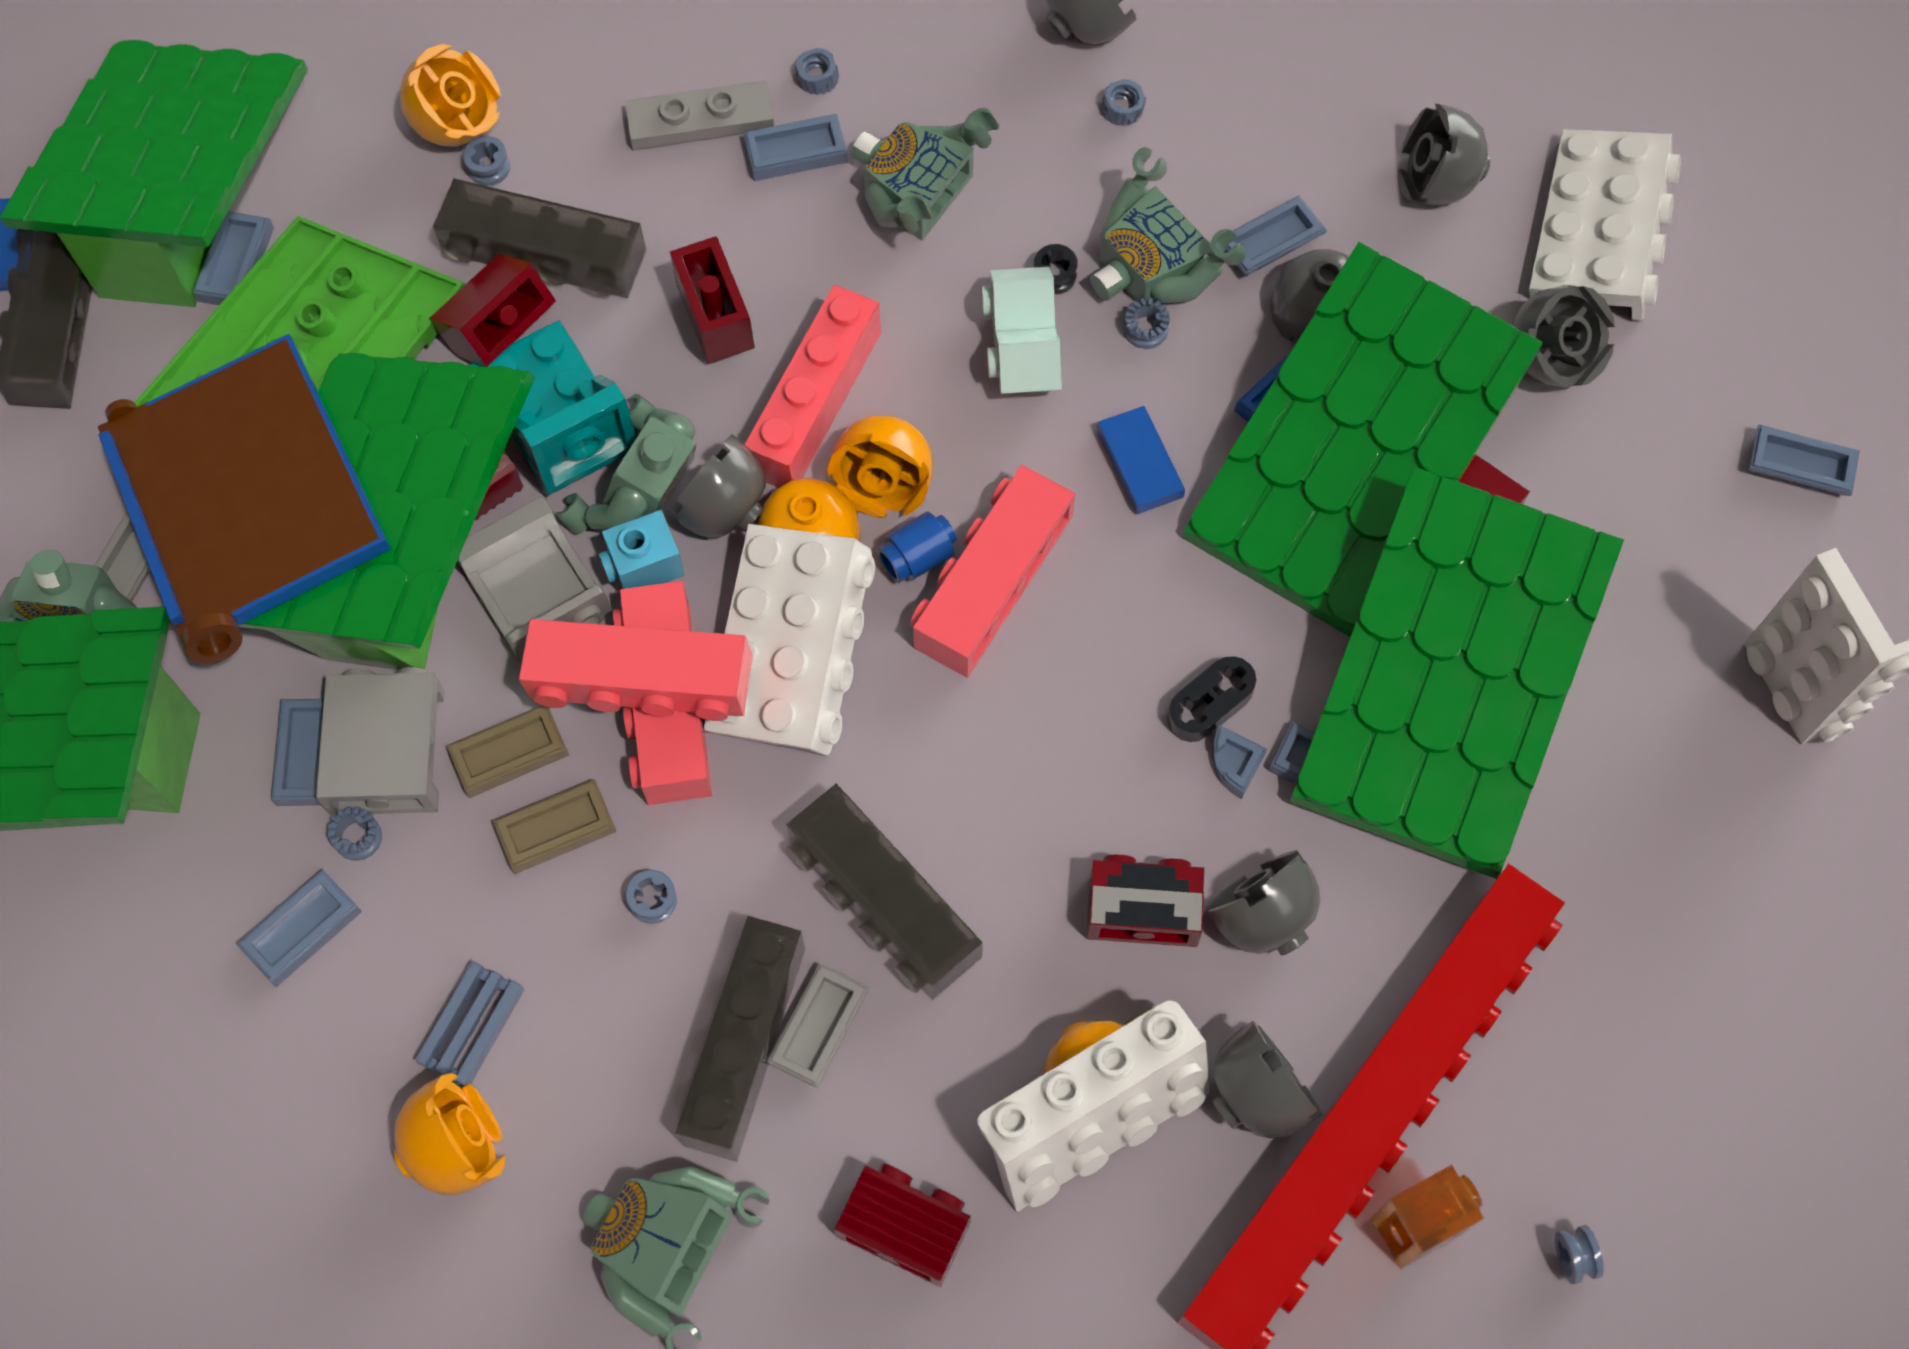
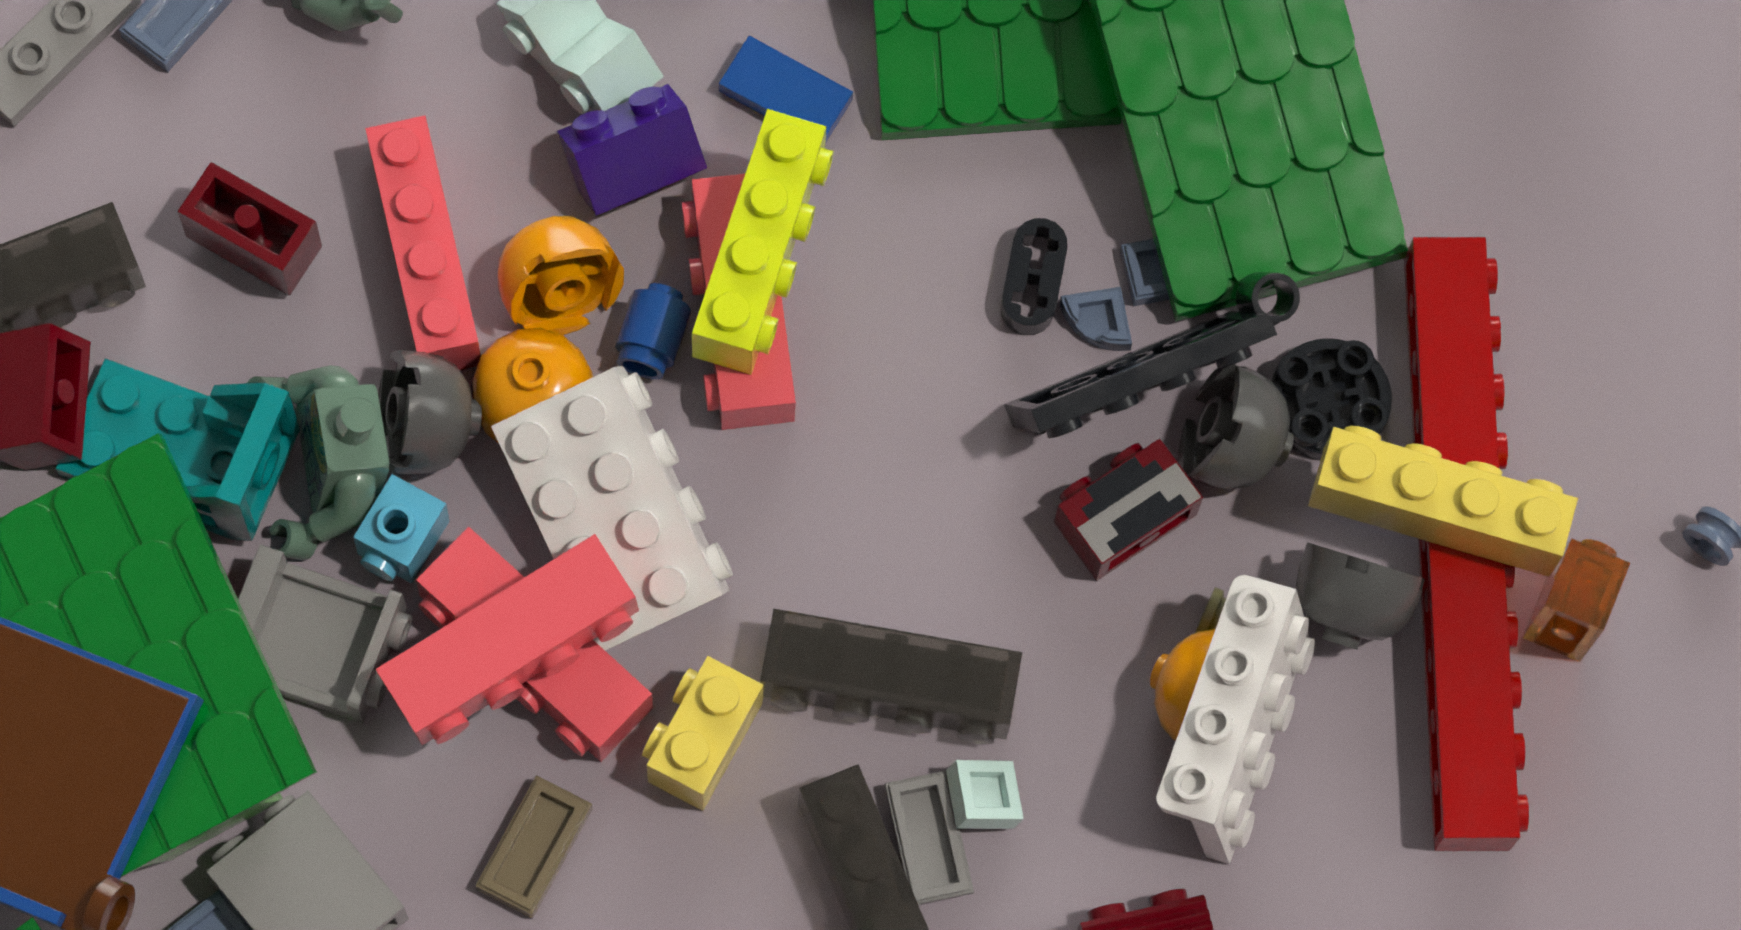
camera: 45 degrees left, 5 degrees up
(507, 751) = (427, 811): dark tan tile -> none
(660, 882) = (686, 859): sand blue bush -> none
(723, 832) = (704, 733): none -> light yellow brick
(879, 1024) = (984, 794): none -> light aqua plate
(1000, 418) = (632, 148): none -> dark purple piece
(1026, 530) = (759, 242): none -> neon yellow brick
(1245, 818) = (1162, 363): none -> black hinge
(1360, 937) = (1330, 387): none -> black tile
(1376, 1064) = (1443, 500): none -> light yellow brick

